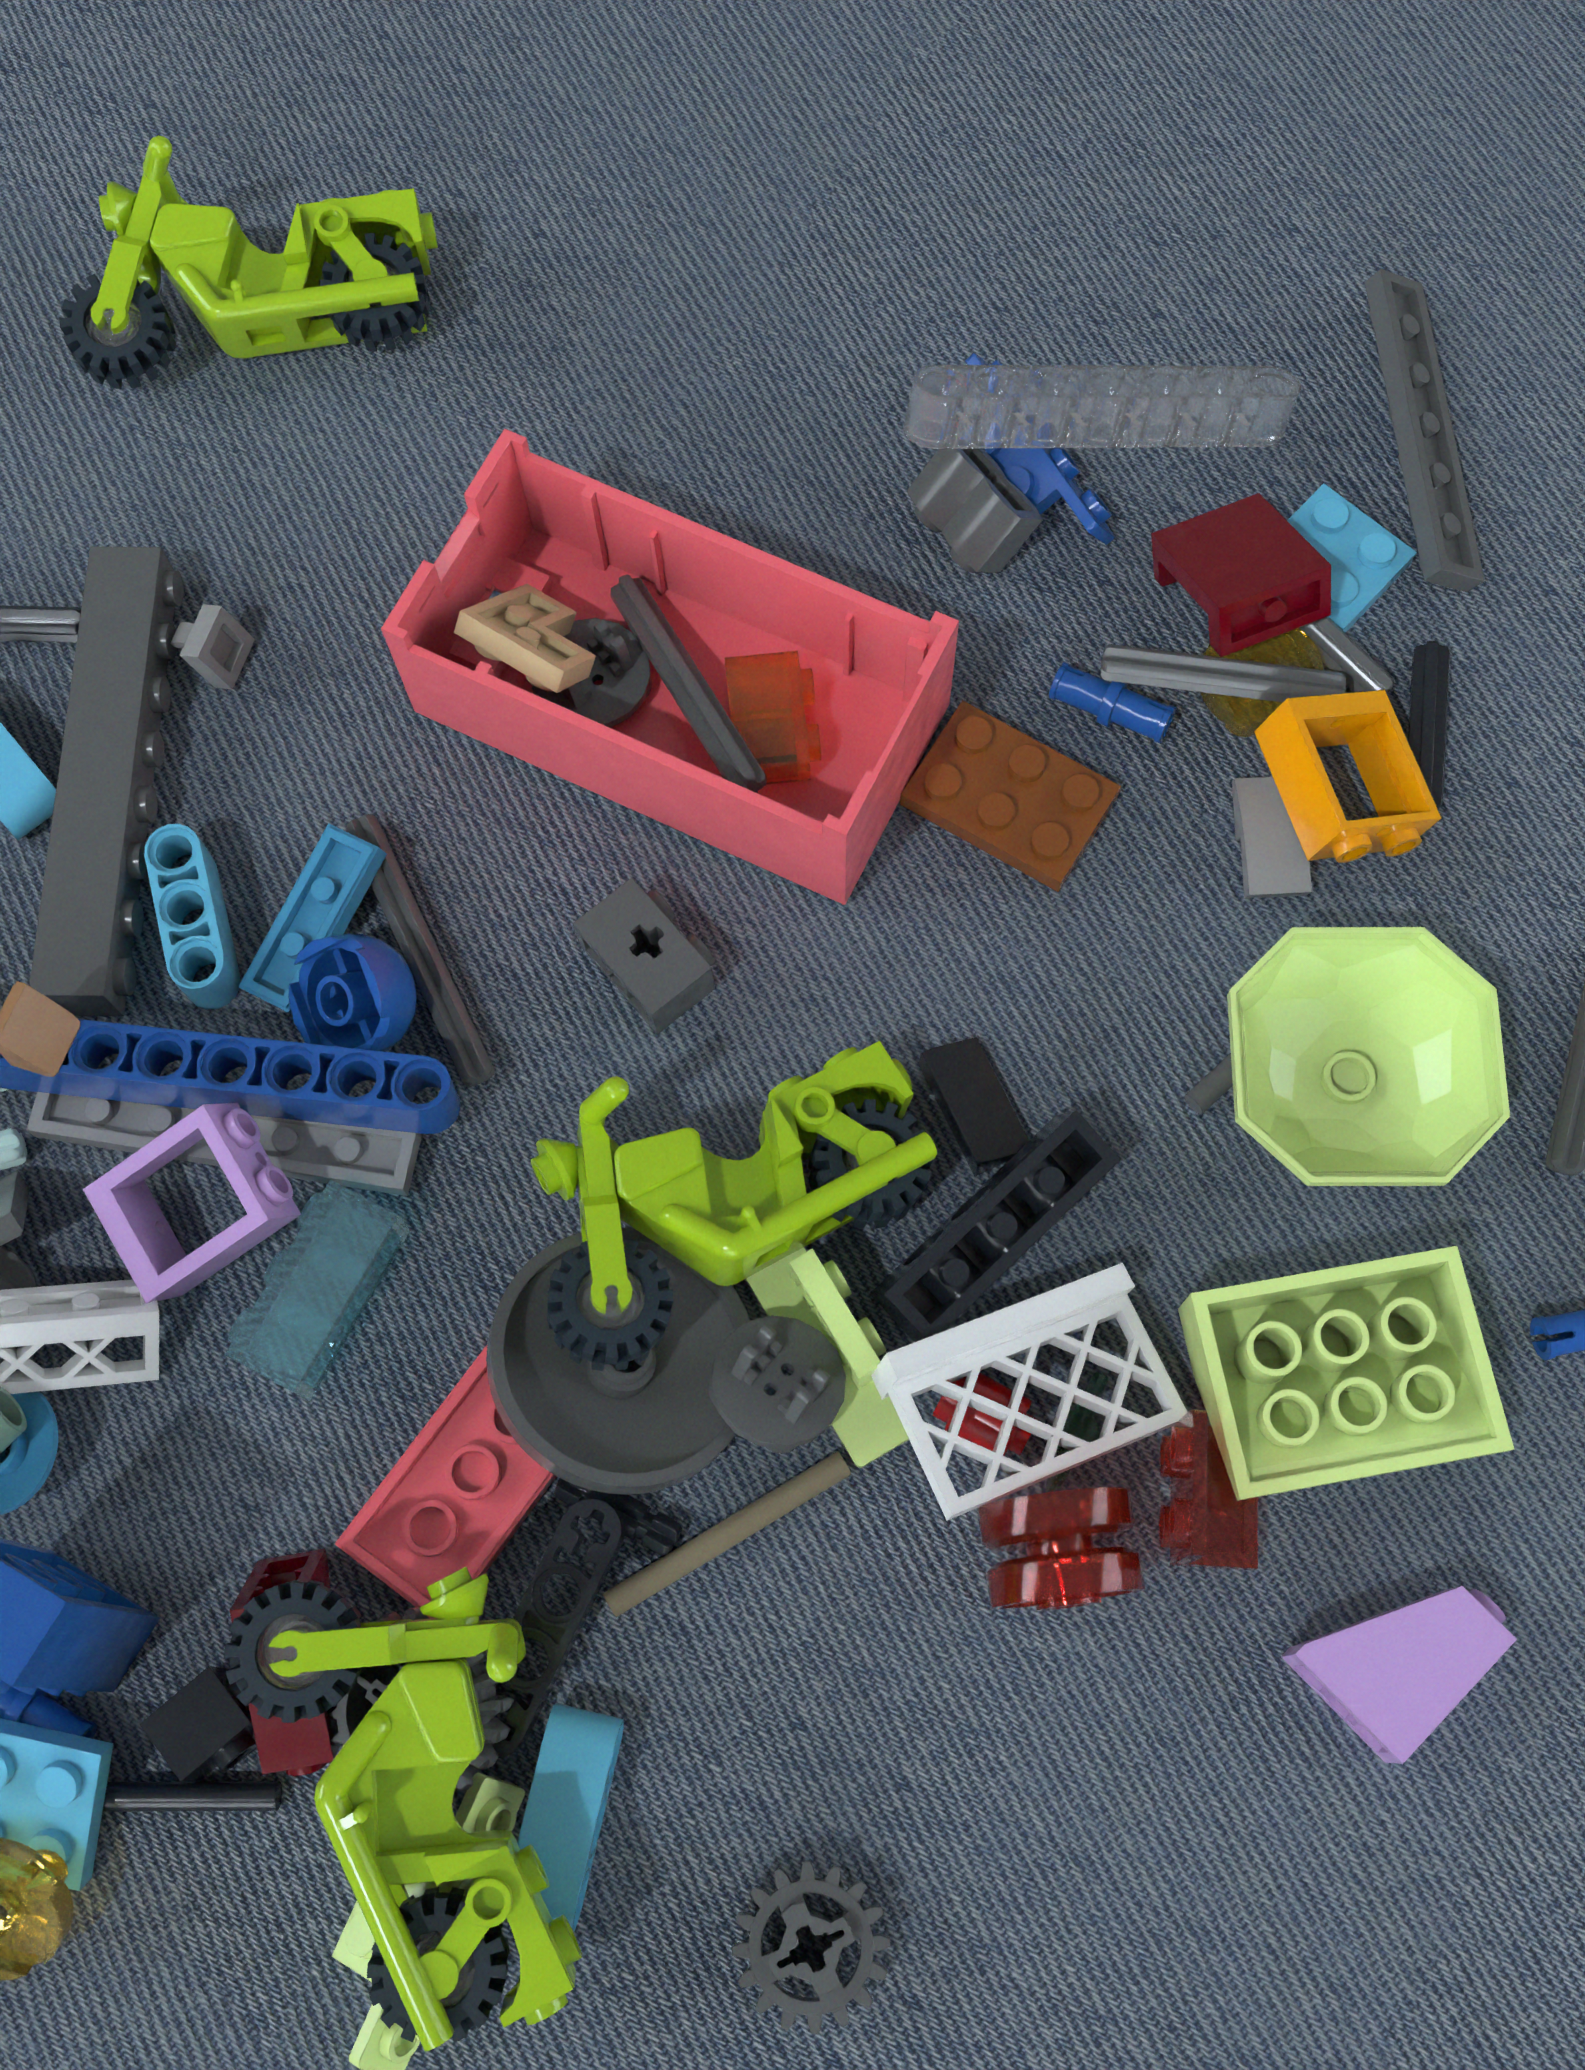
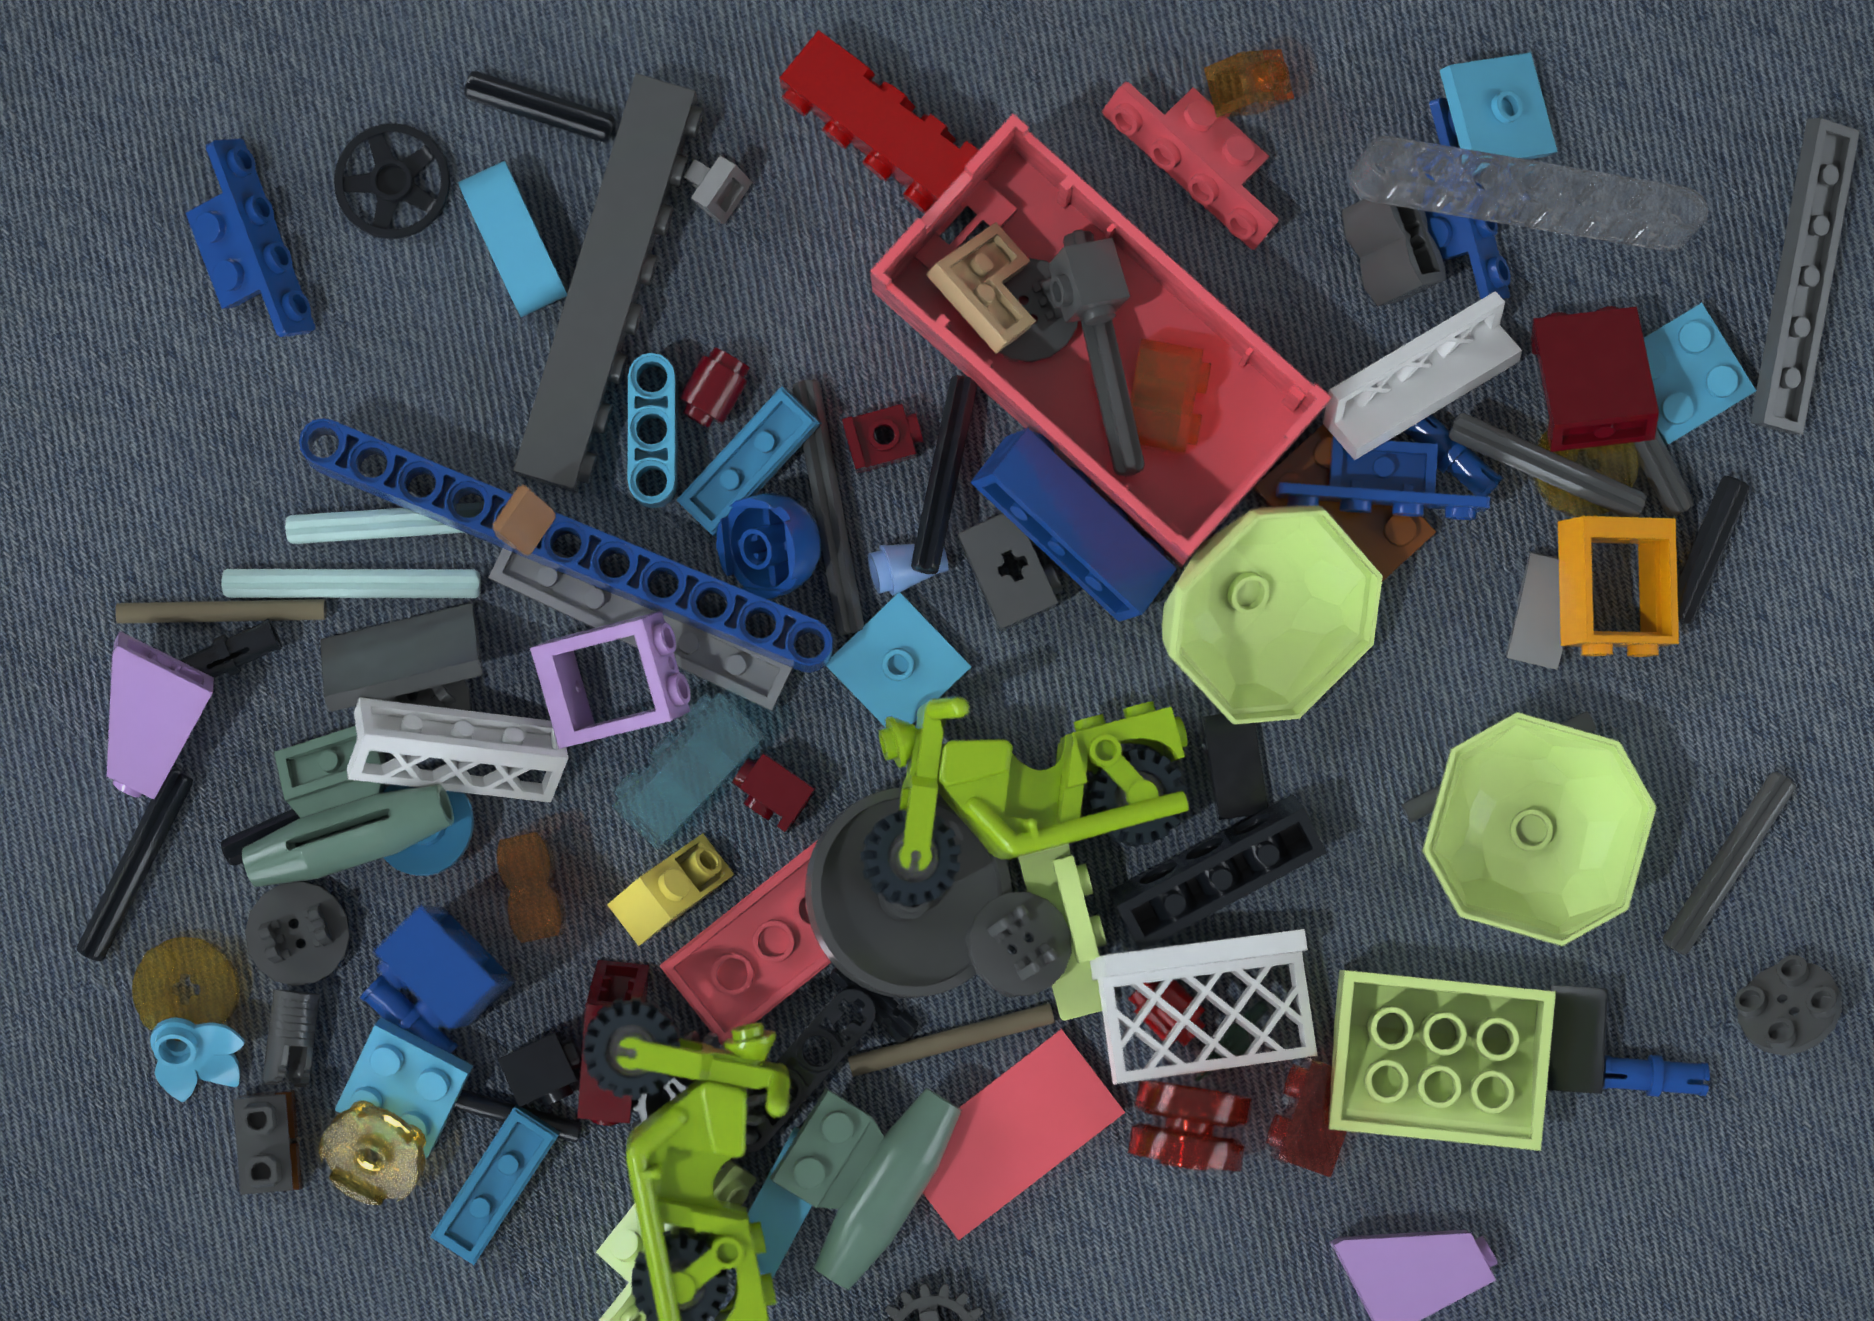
camera: 15 degrees right, 15 degrees up
(151, 1505) = (529, 872): none -> clear orange brick
(176, 1902) = (495, 1184): none -> dark azure tile
(253, 851) = (714, 388): none -> dark red brick
(324, 1443) = (670, 889): none -> light yellow slope
(354, 525) = (875, 121): none -> red wedge
(429, 1284) = (773, 790): none -> dark red brick
(464, 872) = (871, 455): none -> dark red brick
(522, 985) = (892, 568): none -> light blue cone
(534, 1092) = (897, 662): none -> medium azure plate
(542, 873) = (944, 475): none -> black axle
(644, 601) = (1088, 282): none -> dark grey brick
(658, 1739) = (869, 1177): none -> sand green plate
(704, 874) = (1074, 524): none -> blue brick
(734, 483) = (1201, 154): none -> coral bracket
(767, 392) = (1249, 83): none -> clear orange brick
(834, 1635) = (1019, 1132): none -> coral tile
(964, 897) = (1272, 613): none -> yellowish green rock
(1029, 336) = (1499, 107): none -> medium azure plate
(1045, 730) = (1388, 475): none -> blue bracket
(1049, 627) = (1420, 377): none -> white fence
(1505, 1307) = (1578, 1039): none -> black slope

